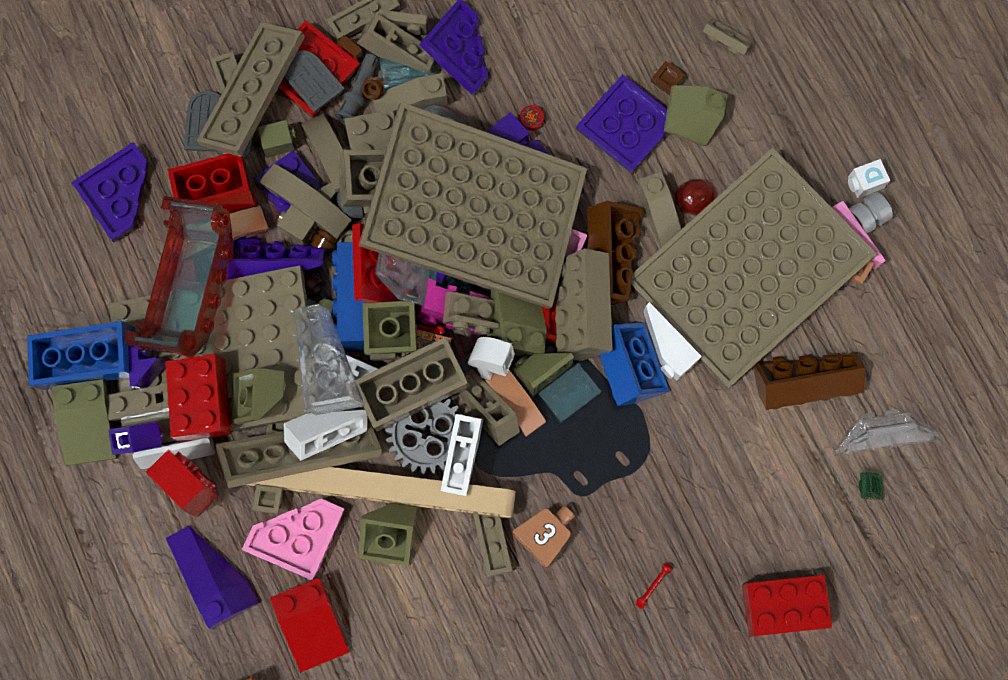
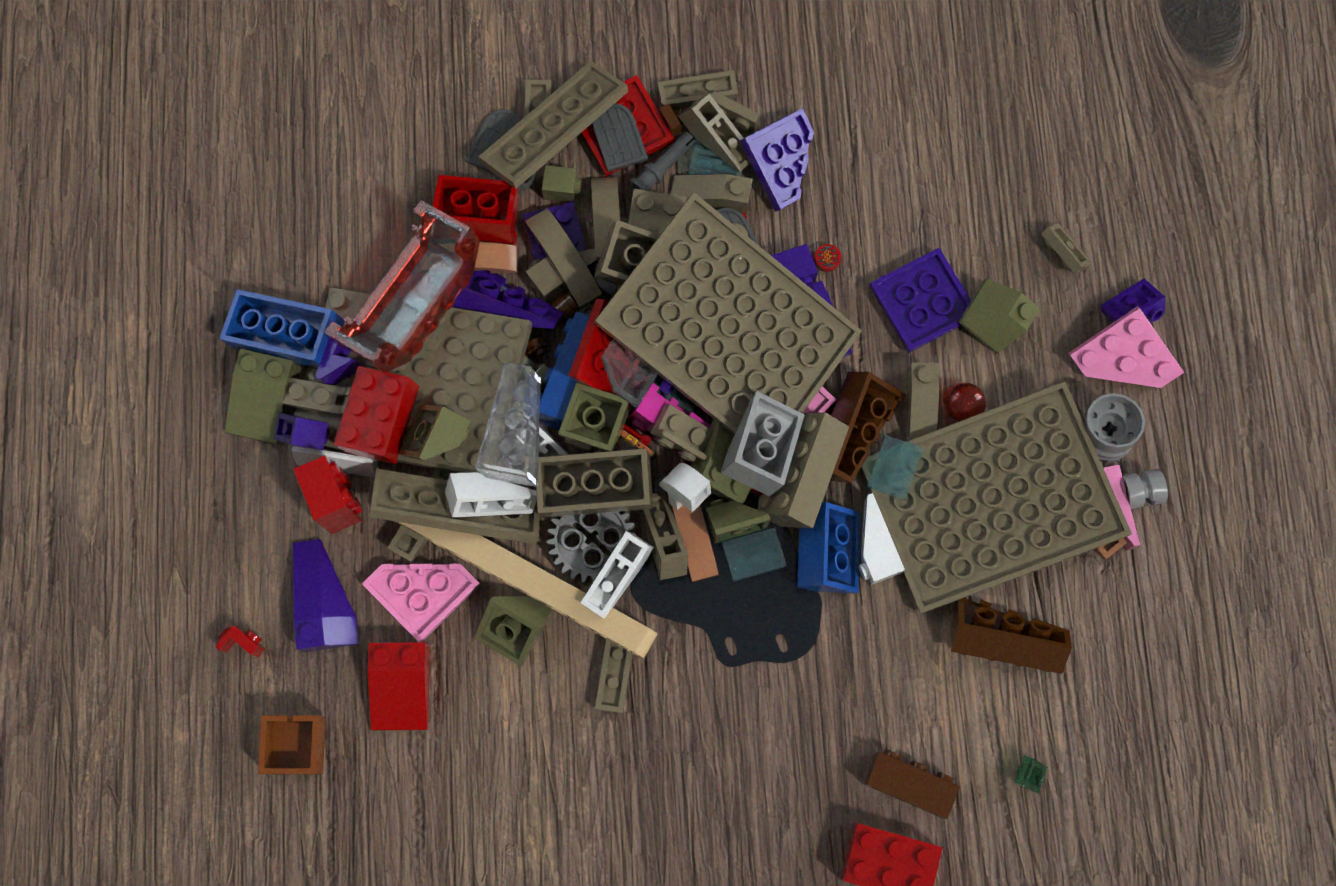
camera: 25 degrees right, 0 degrees up
(115, 190) = (380, 177): dark purple plate -> none
(160, 638) = (247, 640): none -> red bracket
(371, 93) = (672, 171): reddish brown plate -> none
(543, 296) = (763, 445): none -> light grey slope
(545, 534) = (671, 689): nougat torso -> none
(641, 602) = (782, 774): red hinge -> none
(660, 273) = (895, 467): none -> clear light blue plate
(666, 77) = (985, 267): reddish brown plate -> none
(777, 533) = (912, 783): none -> reddish brown brick
(803, 65) = (1141, 295): none -> dark purple bracket
(813, 105) = (1128, 353): none -> bright pink plate
(832, 166) = (1121, 422): none -> light grey wheel
(868, 178) = (1156, 452): white brick -> none
(884, 432) = (1068, 724): clear wedge -> none

